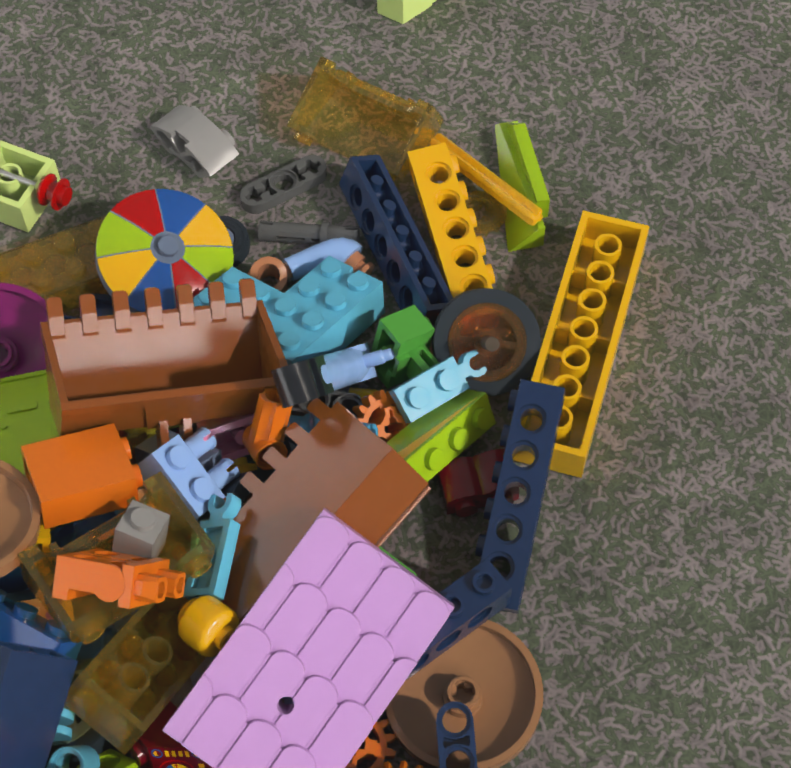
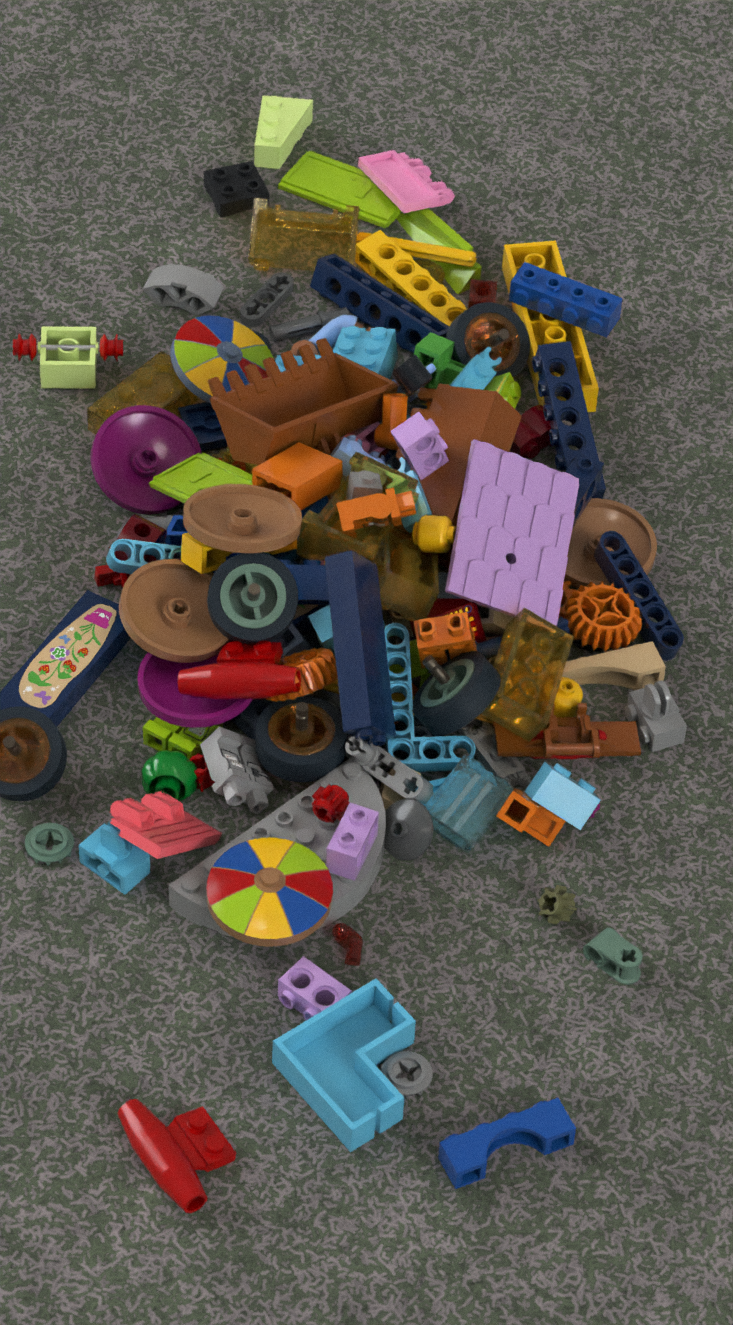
camera: 30 degrees left, 10 degrees down
(250, 491) = (421, 444): none -> lavender brick
(335, 34) = (235, 188): none -> black brick
(460, 74) = (339, 185): none -> lime piece
(521, 282) = (481, 292): none -> clear red brick
(523, 87) = (405, 181): none -> bright pink hinge
(608, 317) = (565, 299): none -> blue brick

